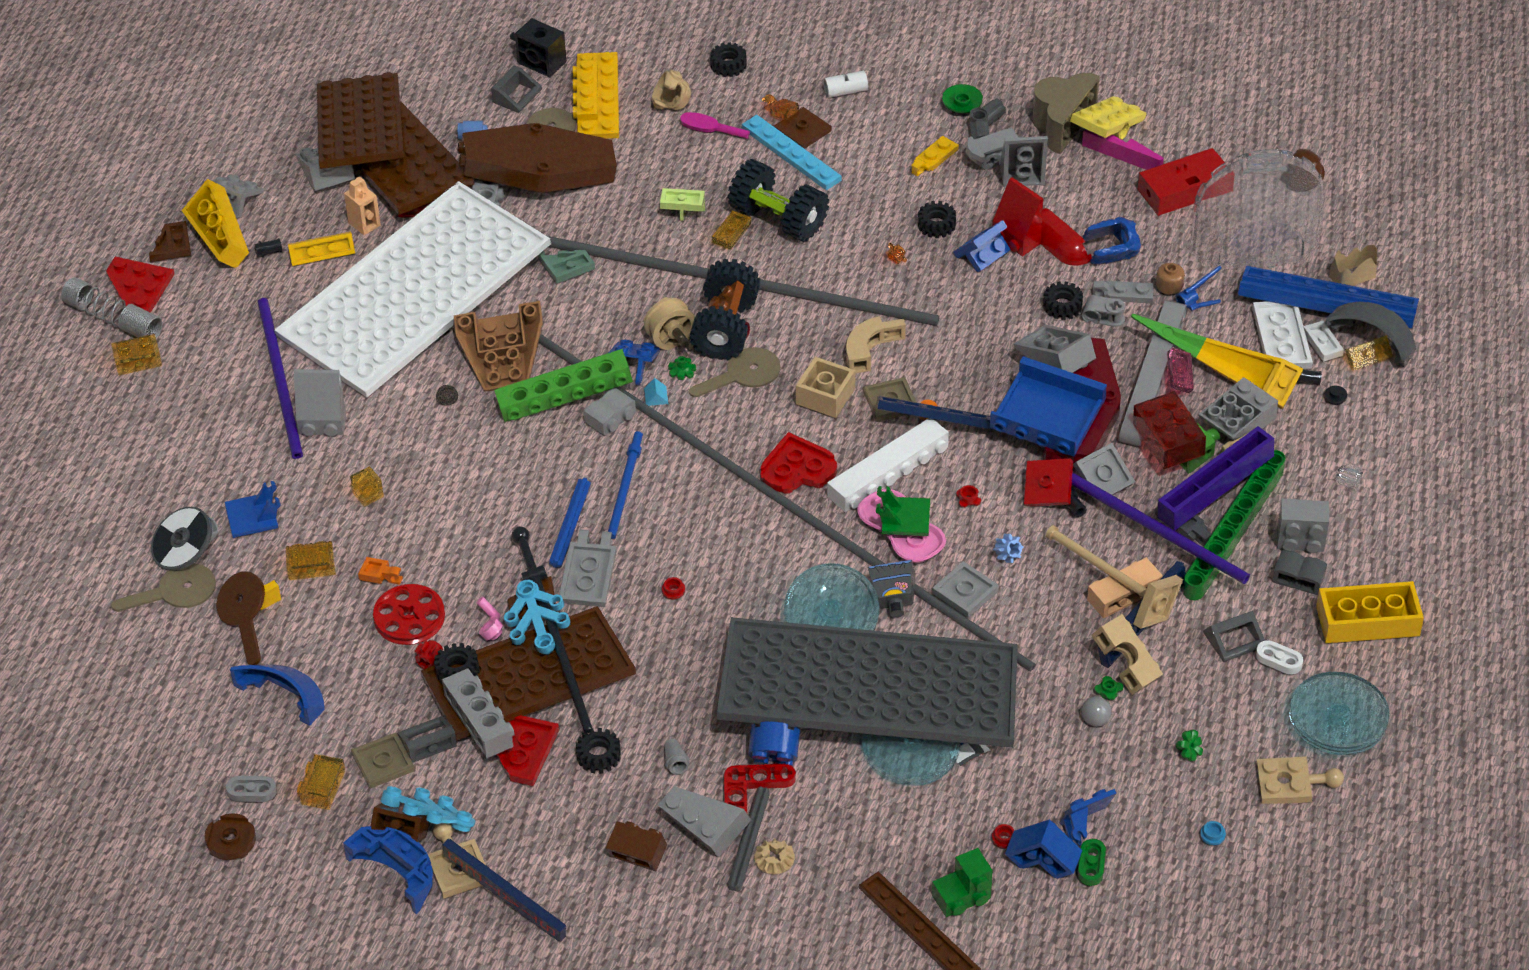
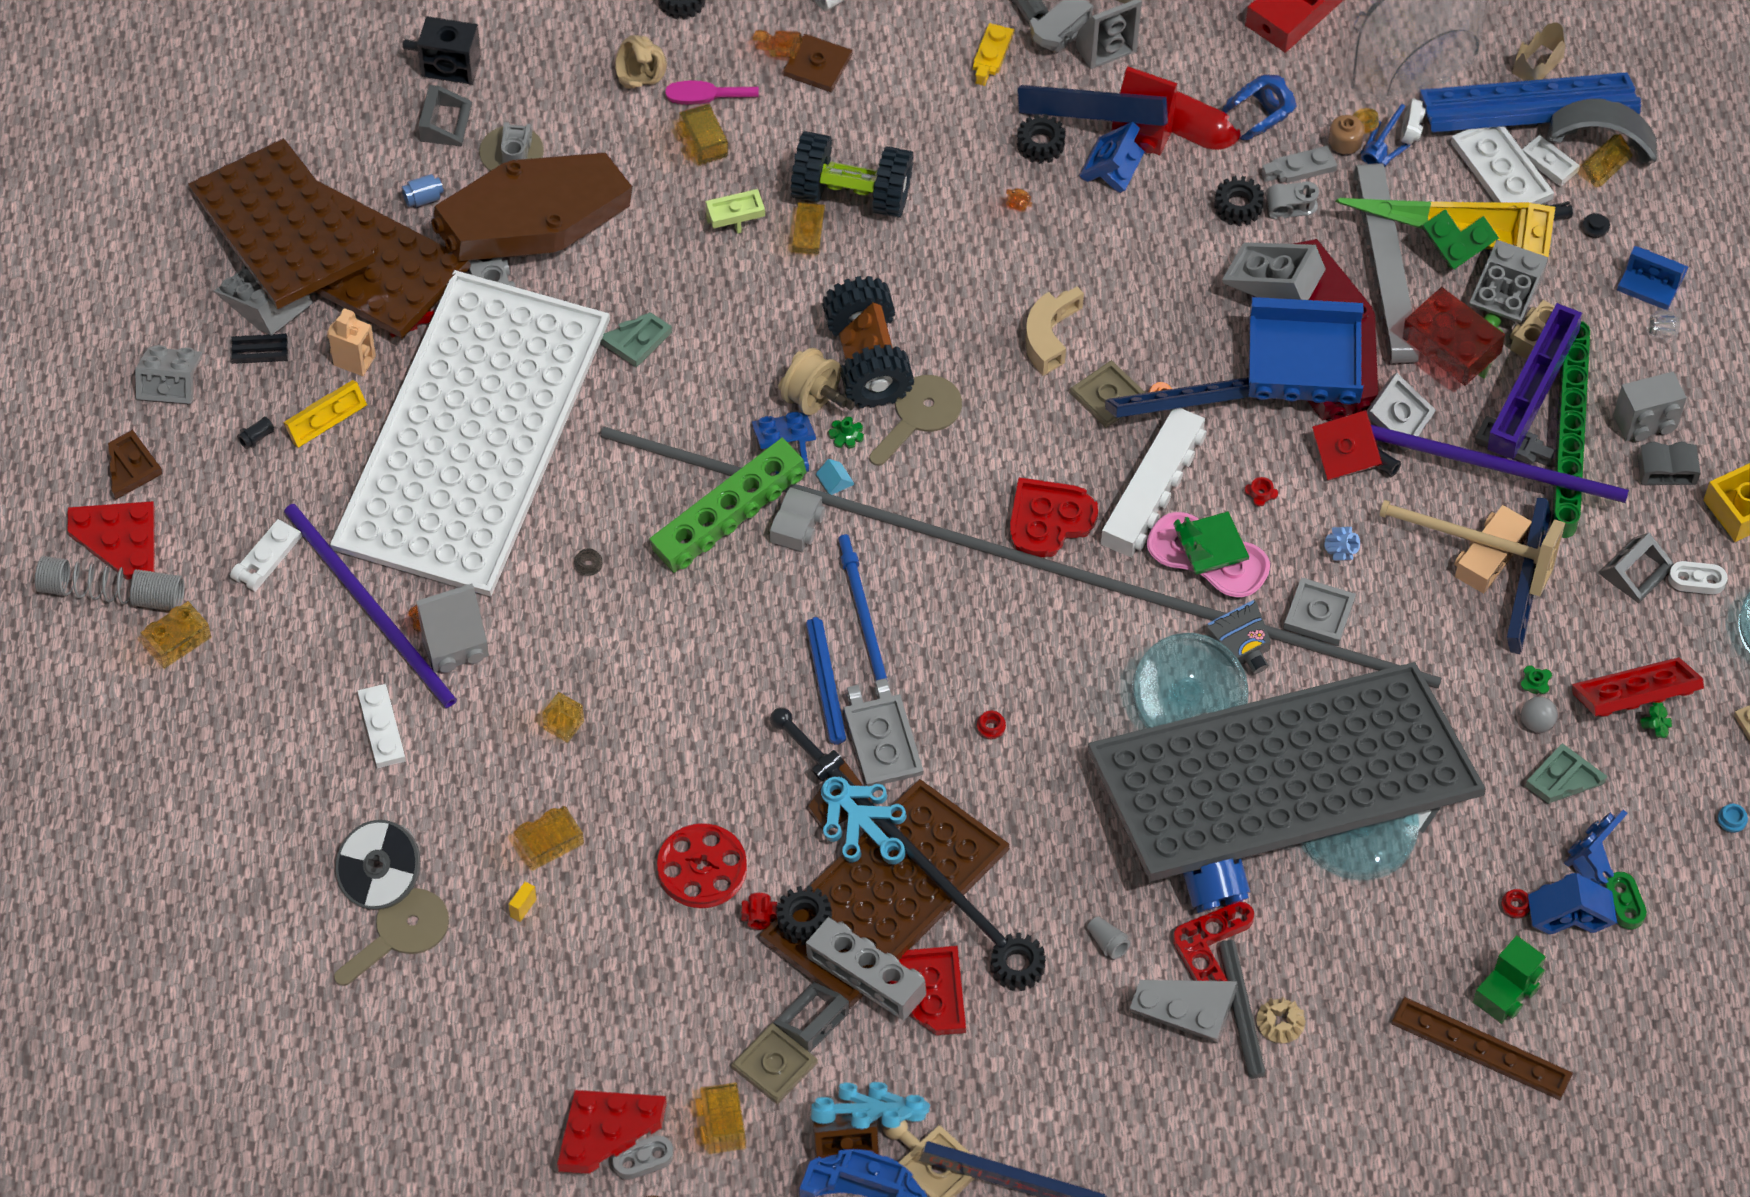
camera: 25 degrees left, 10 degrees up
(216, 223) = (179, 423): yellow wedge -> none
(228, 325) = (266, 555): none -> white plate
(236, 757) = (606, 1126): none -> red plate
(241, 455) = (381, 726): none -> white plate
(243, 612) = (507, 934): reddish brown piece -> none
(254, 512) = (441, 798): blue plate -> none
(291, 679) = (607, 1000): blue windscreen -> none
(304, 197) = (257, 344): none -> black tile
(376, 570) = (633, 823): orange plate -> none
(493, 626) = (811, 849): bright pink plate -> none
(501, 346) = (623, 474): medium nougat wedge -> none
(555, 116) = (515, 141): none -> light grey piece
(596, 94) = (546, 93): yellow plate -> none
(636, 845) = (1128, 1065): reddish brown brick -> none
(690, 149) = (703, 134): none -> clear yellow brick
(765, 285) = (817, 295): dark grey piece -> none
(792, 152) = (822, 99): medium azure plate -> none
(825, 387) = (1033, 405): tan brick -> none
(981, 203) = (1093, 105): none -> dark blue tile
(1092, 760) = (1564, 776): none -> sand green wing
(1120, 637) = (1563, 645): tan arch -> none
(1180, 371) = (1419, 253): clear pink plate -> none
(1189, 715) = (1638, 687): none -> red plate
(1193, 274) = (1369, 118): none -> clear yellow tile
(1214, 373) = (1458, 245): none -> green brick
(1224, 287) = (1413, 116): none -> white plate
(1360, 441) = (1652, 278): none -> blue bracket

